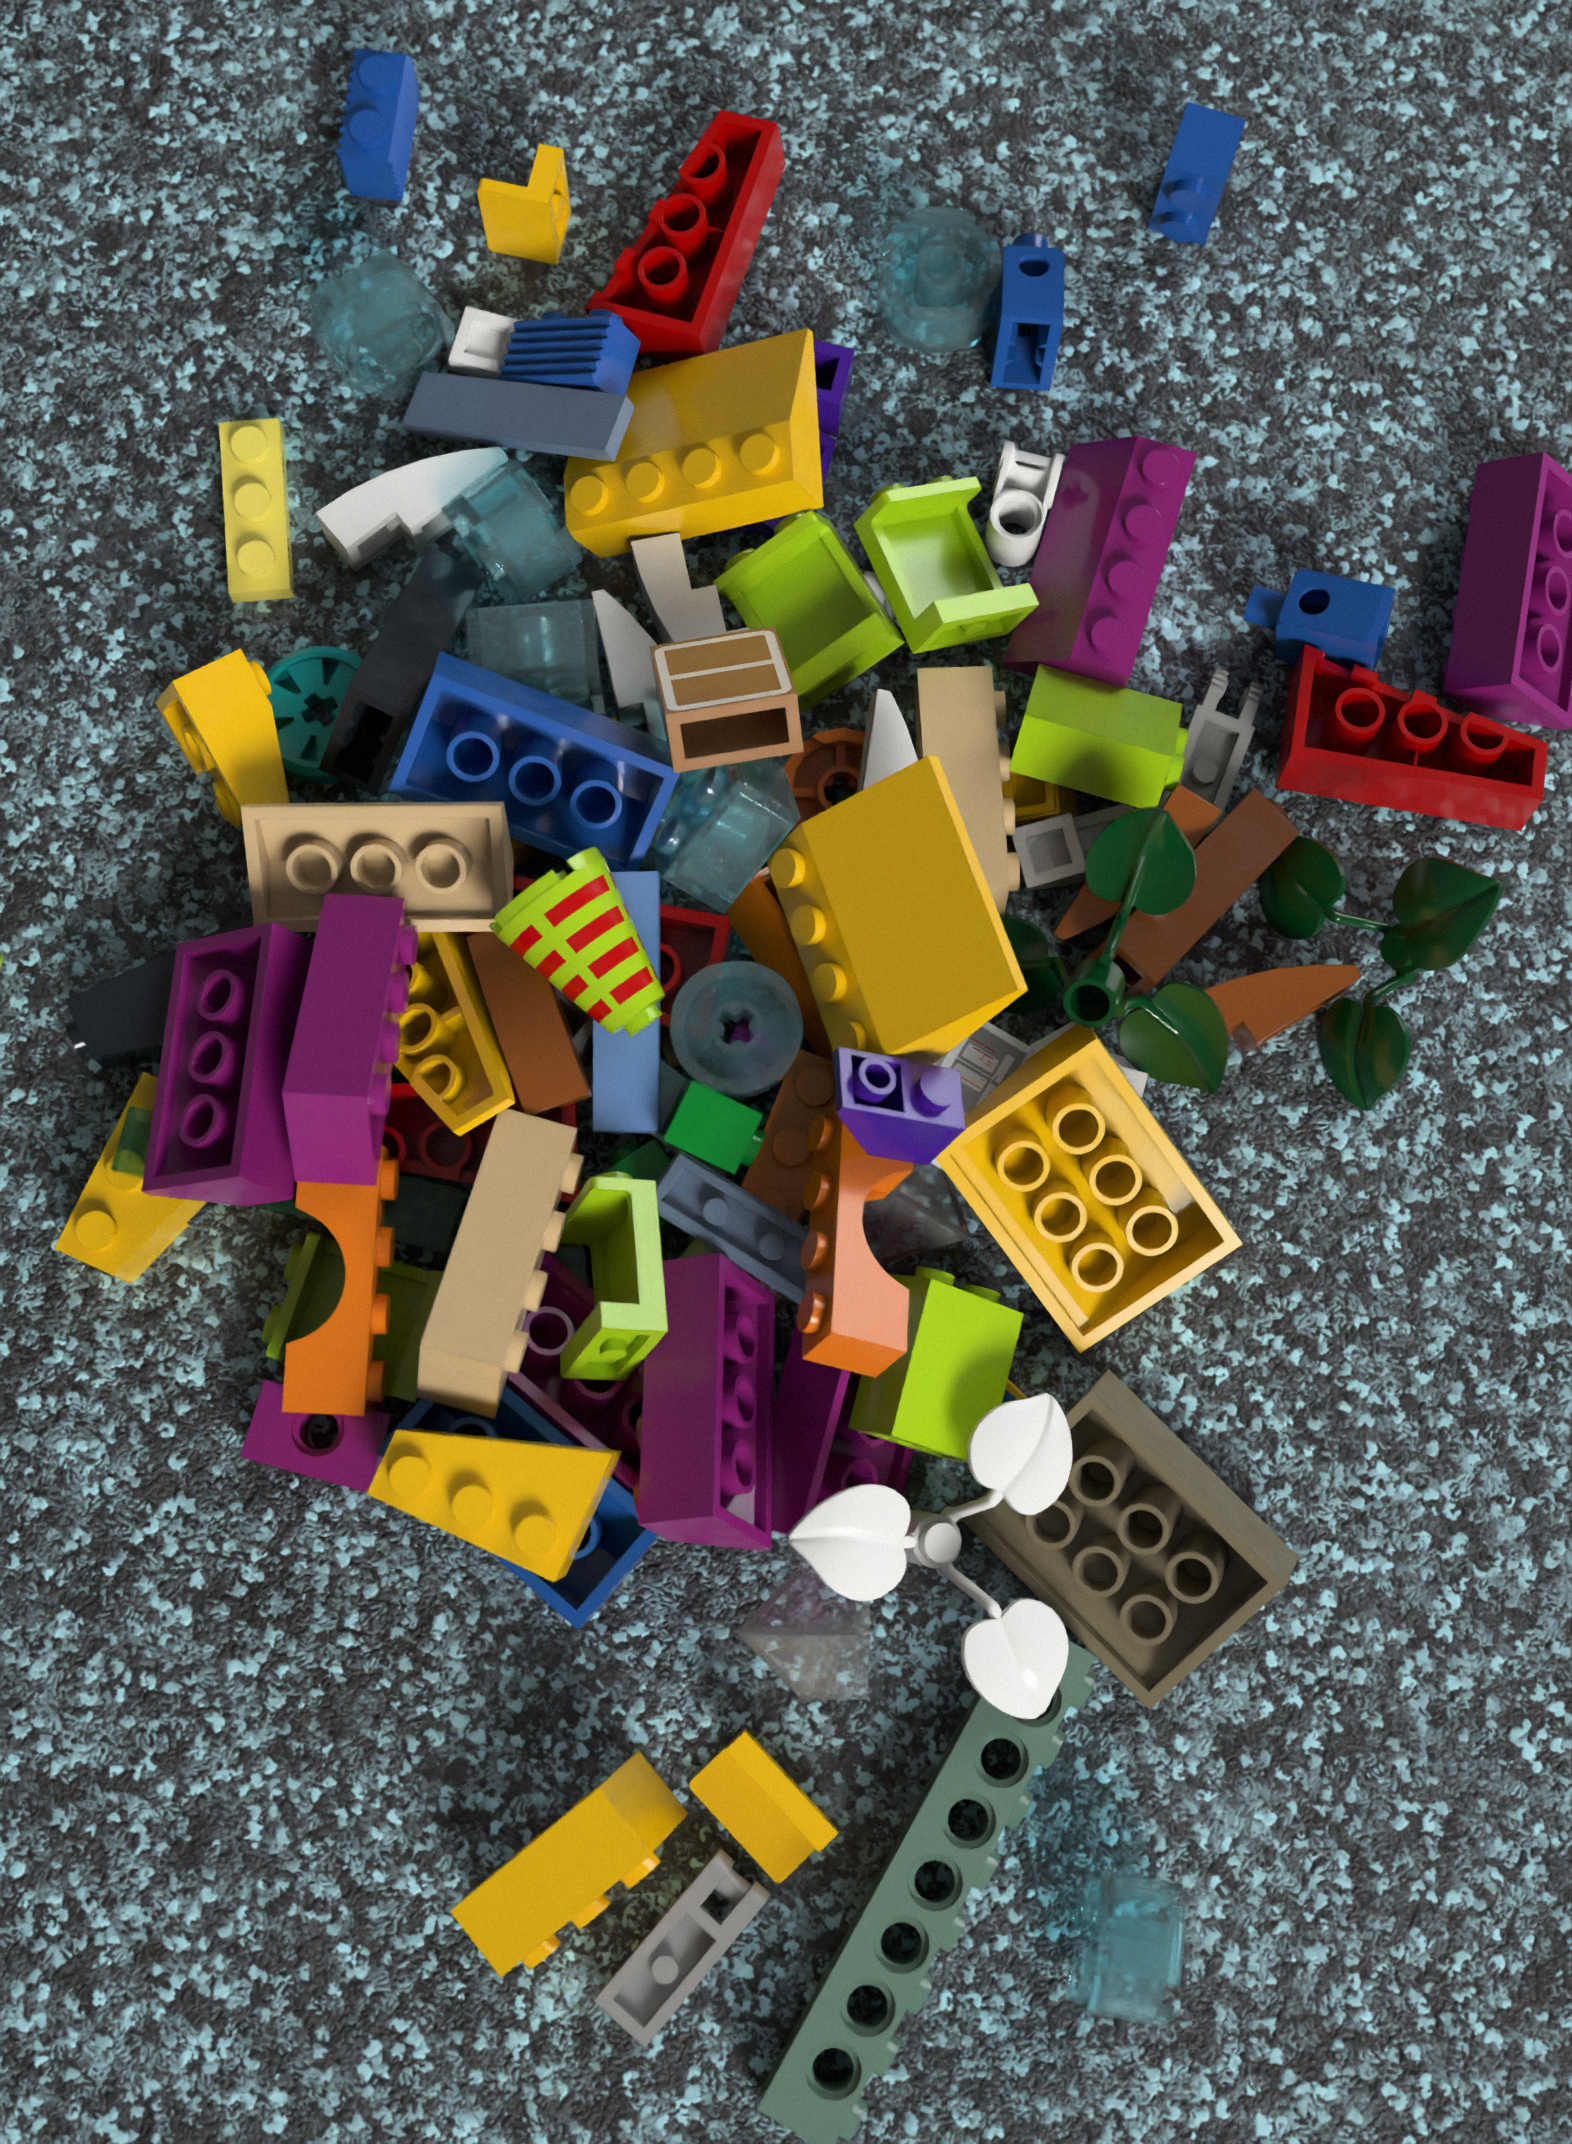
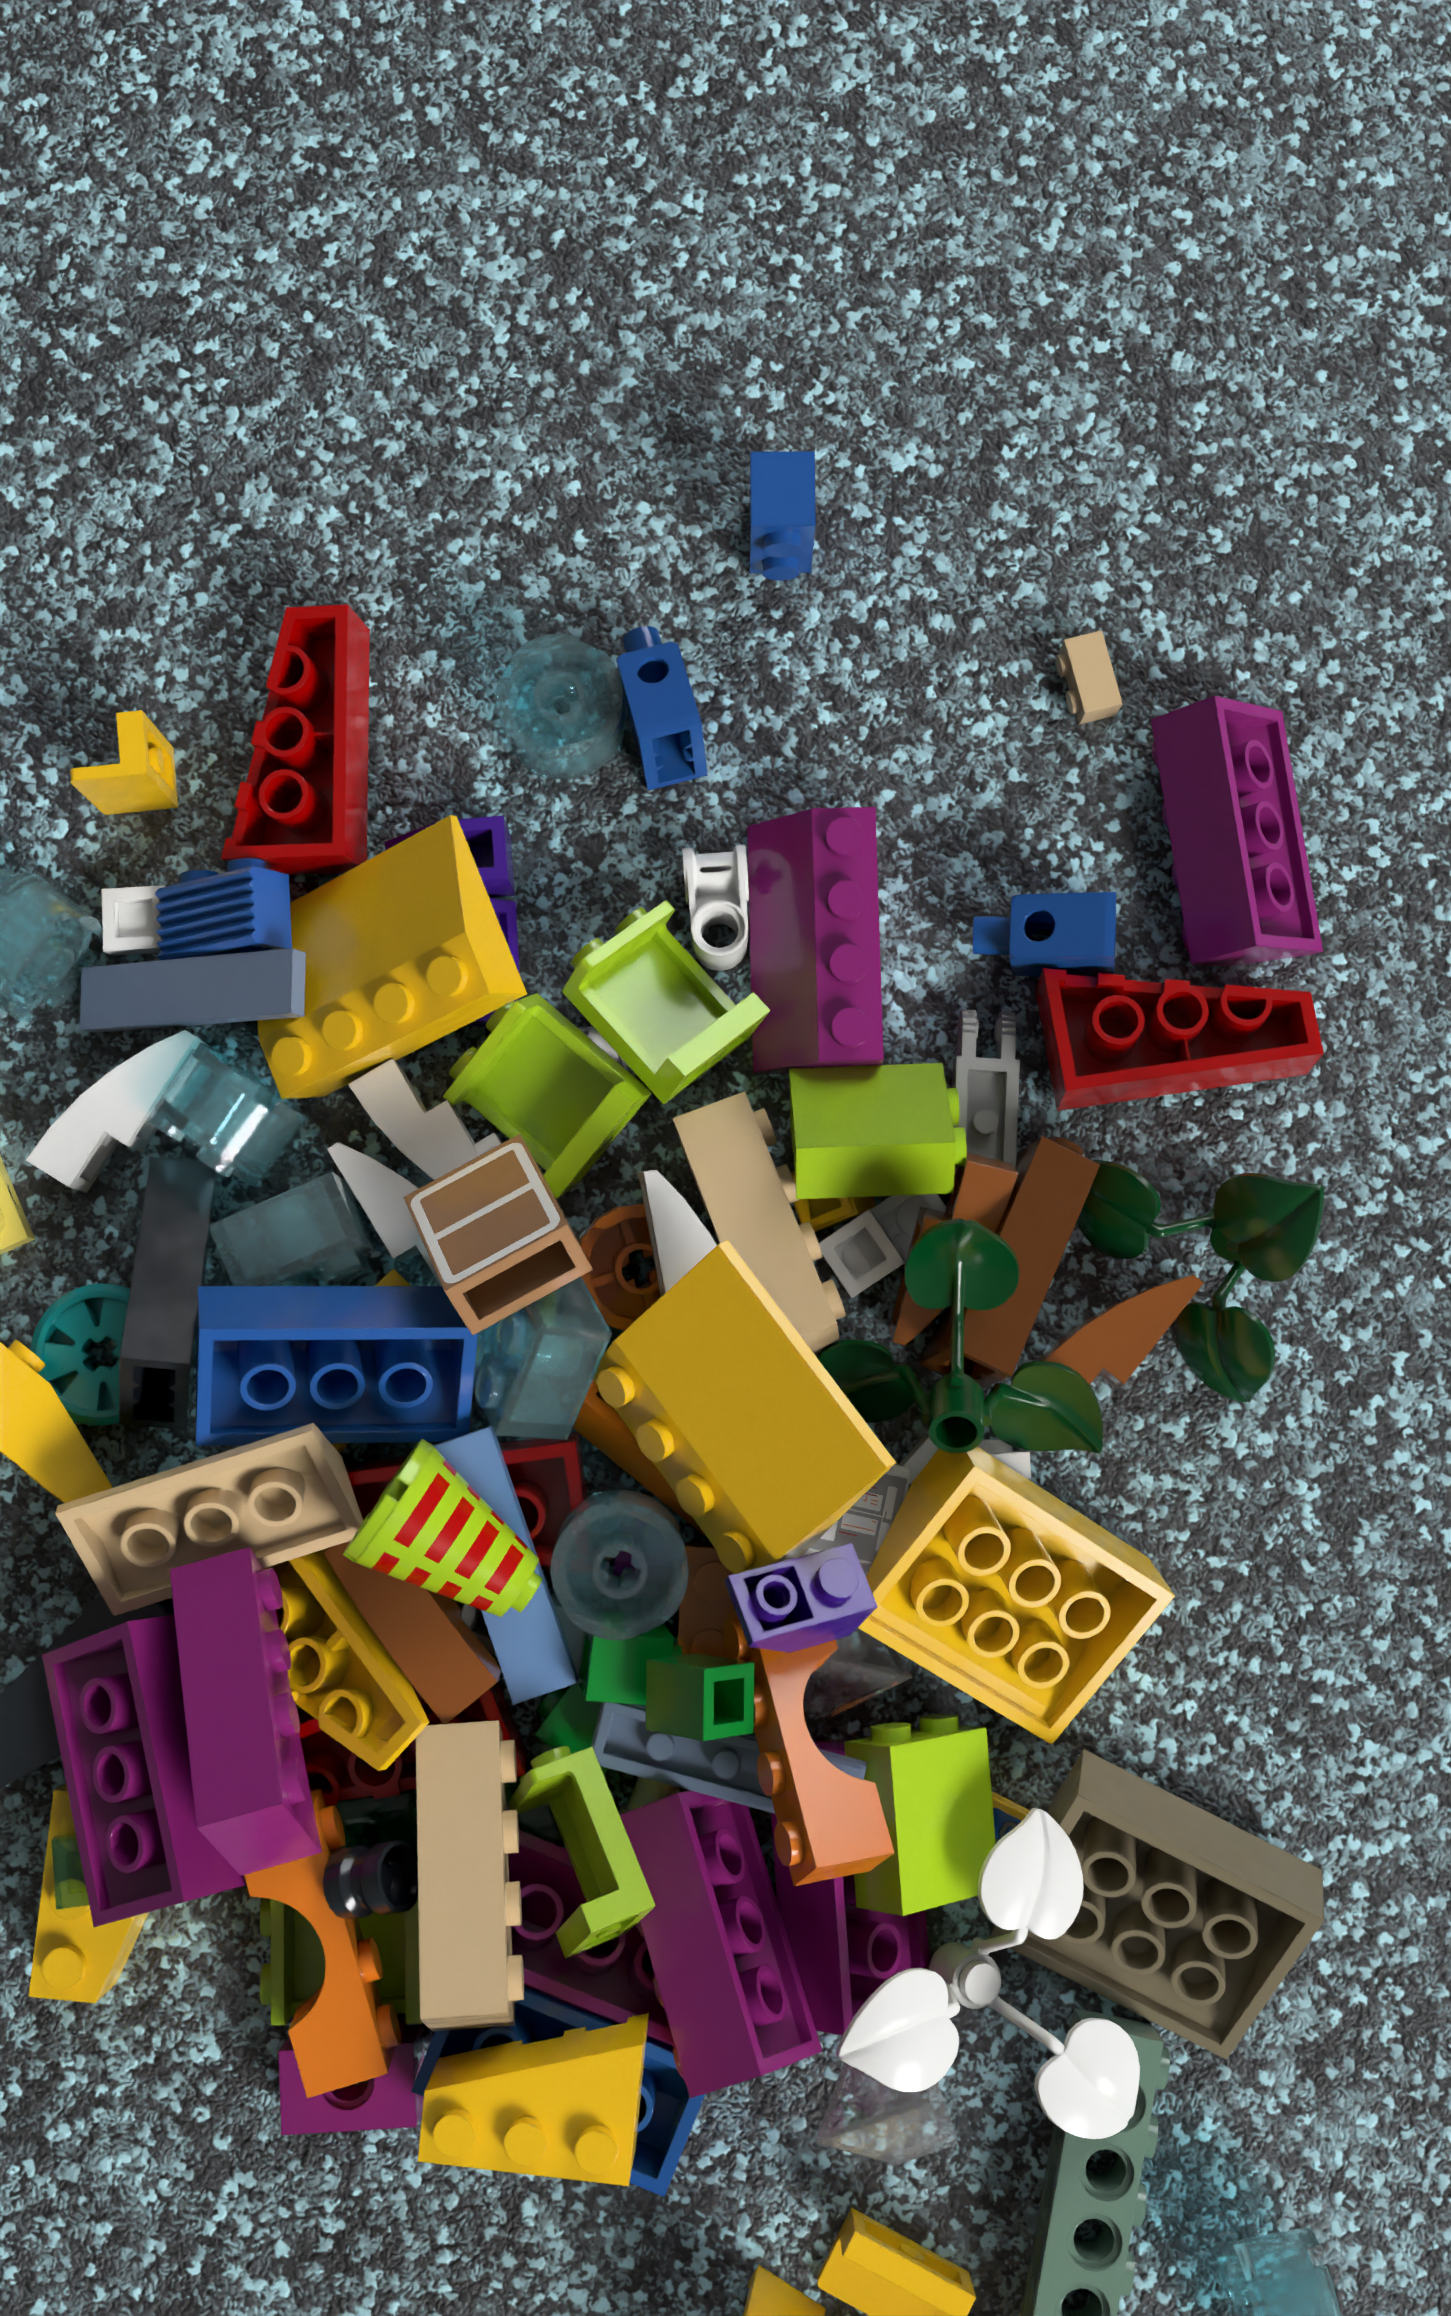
camera: 15 degrees left, 5 degrees up
(401, 1229) = (362, 1883): none -> black wheel
(772, 1162) = (700, 1696): none -> green brick
(1432, 414) = (1089, 677): none -> tan piece

